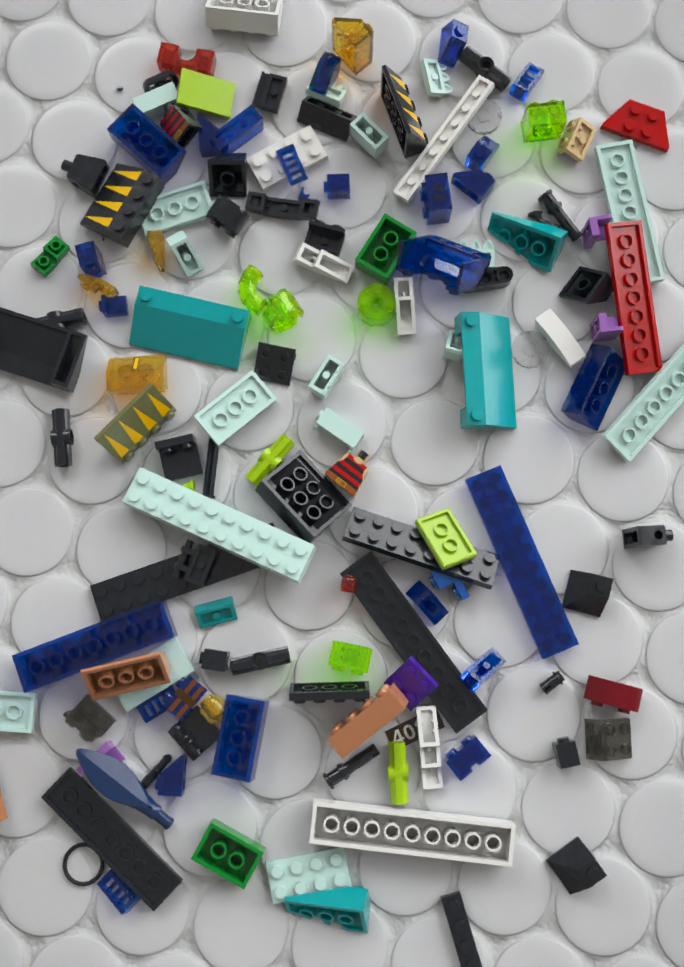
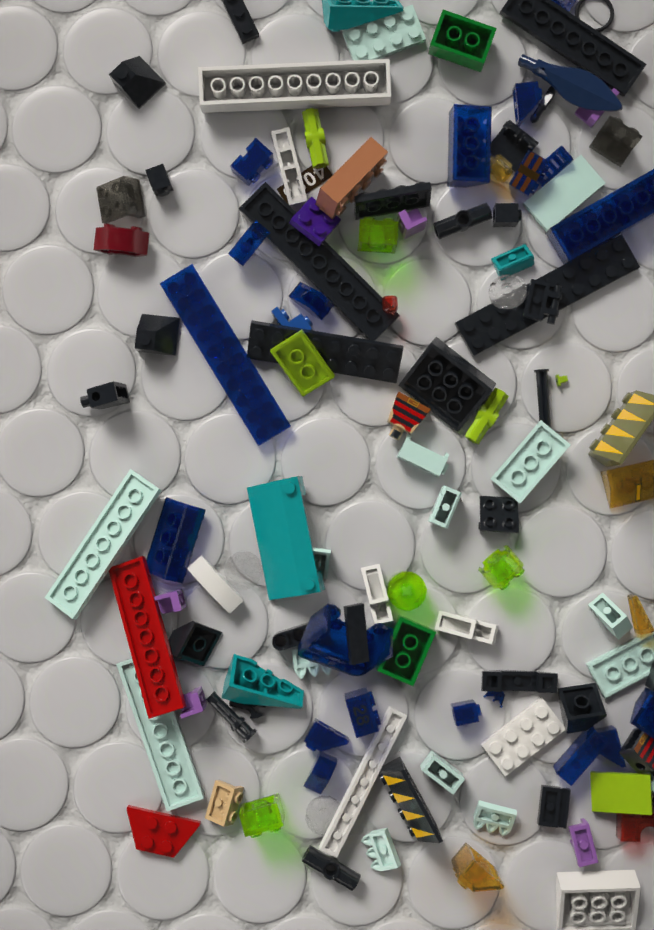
camera: 165 degrees right, 5 degrees up
(127, 675) = (587, 184): nougat slope -> none
(179, 457) = (575, 404): black bracket -> none
(189, 327) = (591, 538): teal slope -> none
(219, 525) = (525, 341): light aqua brick -> none
(227, 215) = (574, 660): black brick -> none
(227, 580) = (507, 291): none -> clear tile
(247, 289) = (539, 587): clear neon green cylinder -> none
(249, 54) = (583, 843): none -> medium lavender panel
(287, 150) = (528, 739): clear blue slope -> none
(313, 666) = (411, 222): none -> medium lavender panel
(325, 73) = (499, 834): clear blue slope -> none
(325, 118) = (489, 787): black panel -> none
(325, 237) = (469, 653): black bracket -> none
(343, 770) = (366, 131): black pin -> none
(431, 268) = (356, 633): none -> black tile
(452, 42) = (369, 891): clear blue slope -> none
(519, 90) = (288, 849): clear blue slope -> none
(552, 682) = (180, 244): black pin -> none

